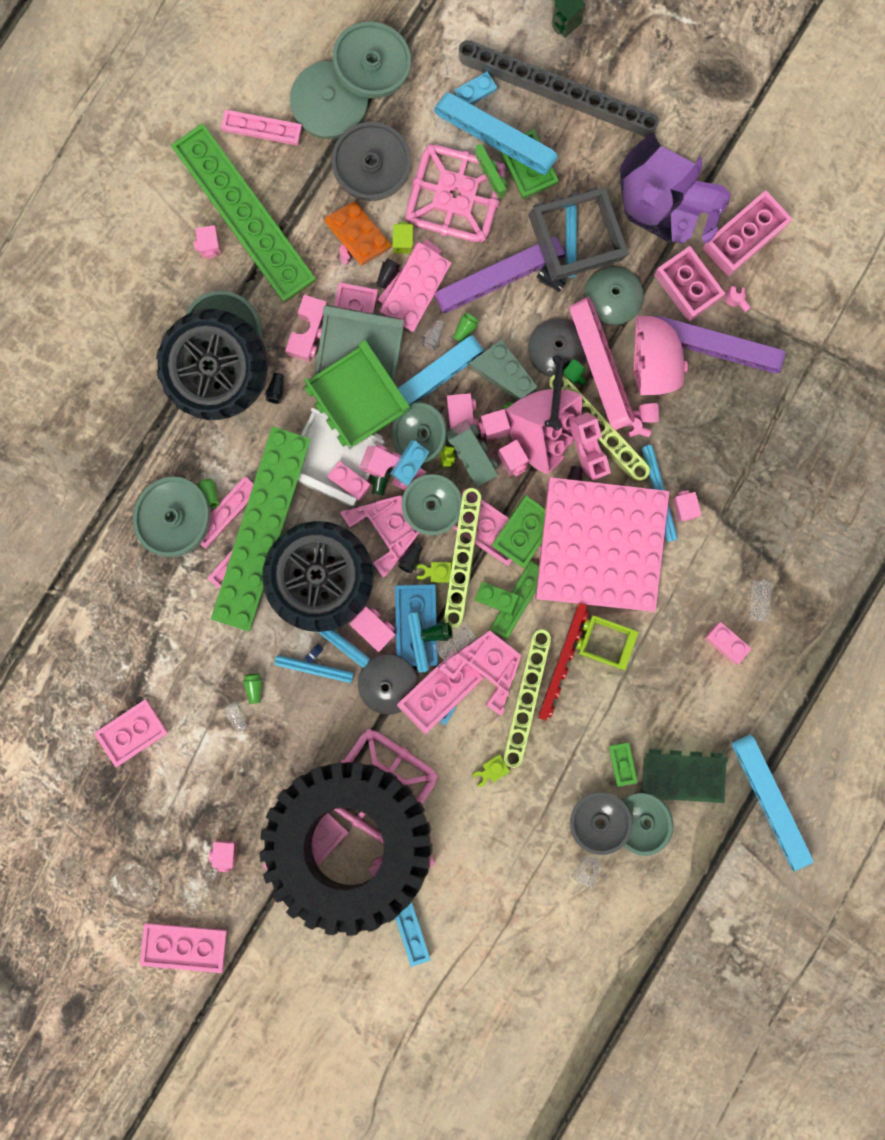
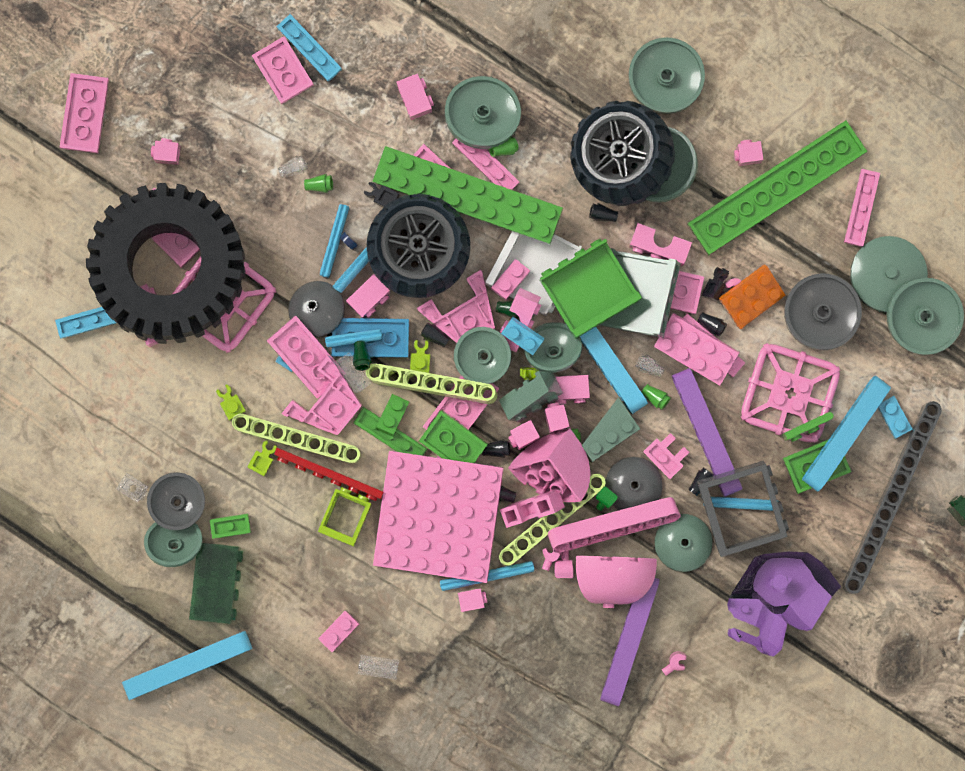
camera: 90 degrees right, 0 degrees up
(106, 705) = (309, 48): none -> medium azure plate
(127, 327) = (666, 75): none -> sand green dish
(156, 590) = (414, 96): none -> bright pink brick
(265, 618) = (383, 195): none -> black plate
(348, 270) = (715, 286): none -> black plate
(402, 238) = (746, 340): lime brick -> none
(527, 486) = (497, 449): none -> black cone
(528, 319) = (663, 458): none -> bright pink plate
(552, 734) = (261, 461): none -> lime plate
(553, 421) = (552, 470): black piece -> none
(689, 284) = (689, 615): bright pink brick -> none
(747, 233) = (738, 675): bright pink brick -> none

